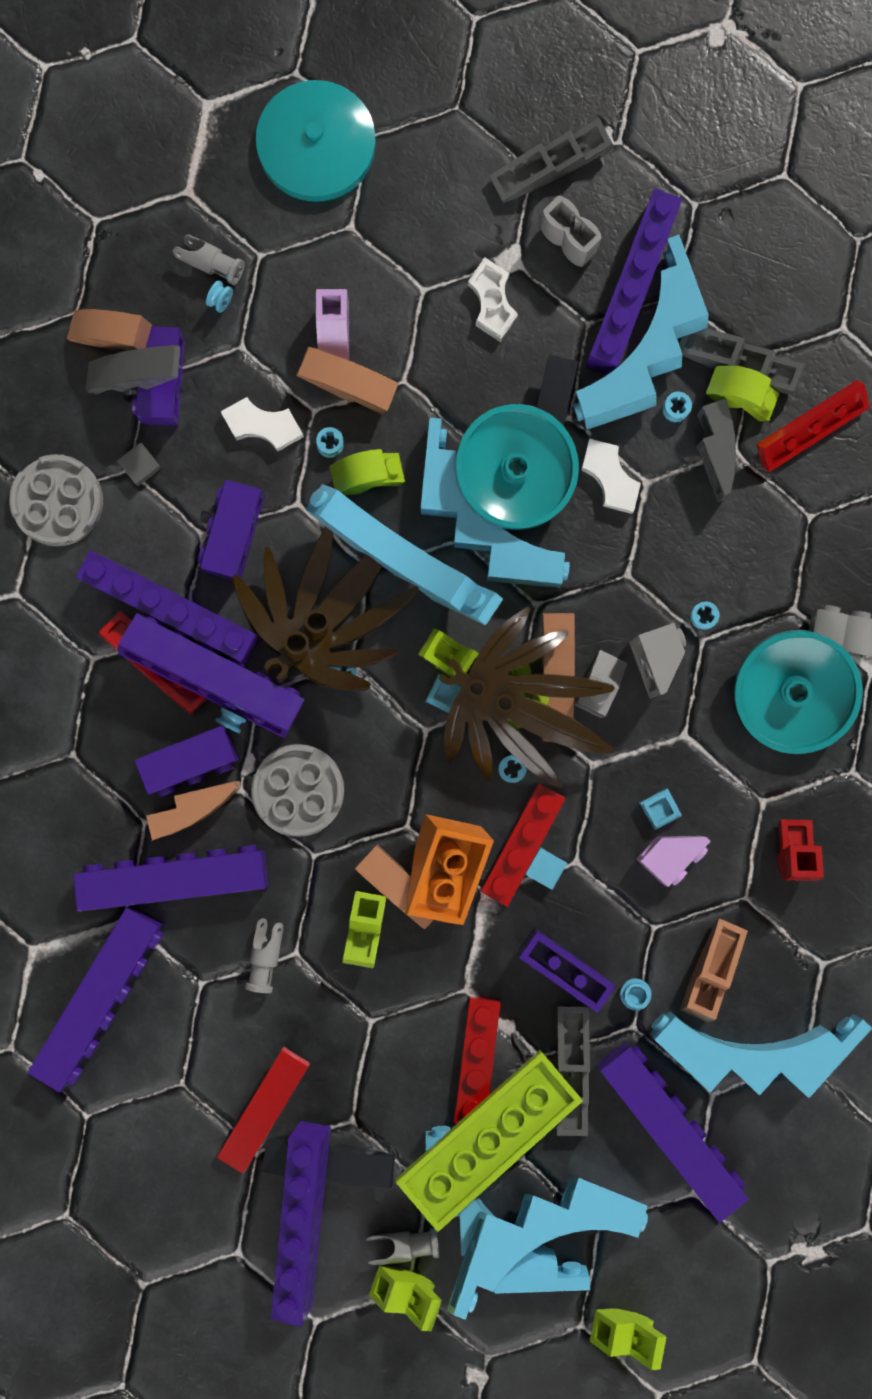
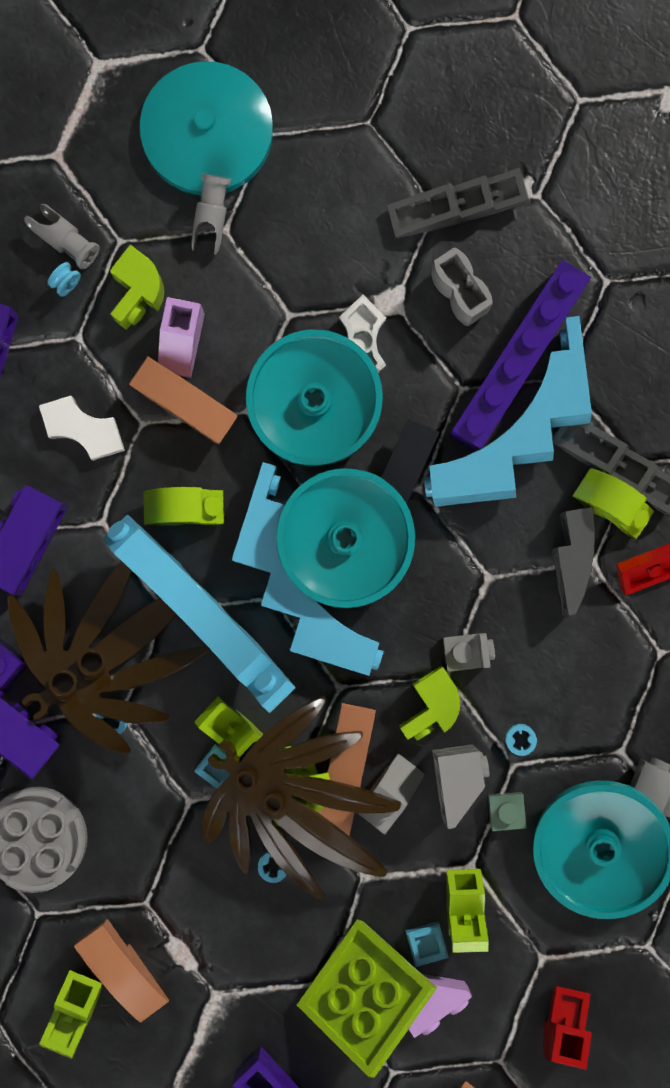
camera: 15 degrees right, 0 degrees up
(289, 285) = (144, 285): none -> lime brick
(329, 453) = (141, 467): medium azure bush -> none
(336, 206) = (211, 207): none -> light grey piece
(446, 869) = (175, 965): orange slope -> none
(462, 353) = (314, 398): none -> teal dish
(522, 844) = (267, 951): red plate -> none
(546, 868) = (287, 983): medium azure tile -> none
(603, 464) = (455, 579): white tile -> none
(619, 860) = (366, 998): none -> lime plate
(628, 595) = (441, 704): none -> lime brick
(643, 548) = (468, 652): none -> light grey bracket
(677, 396) = (549, 505): medium azure bush -> none
(688, 768) = (466, 910): none -> lime brick
(705, 680) = (507, 811): none -> sand green plate

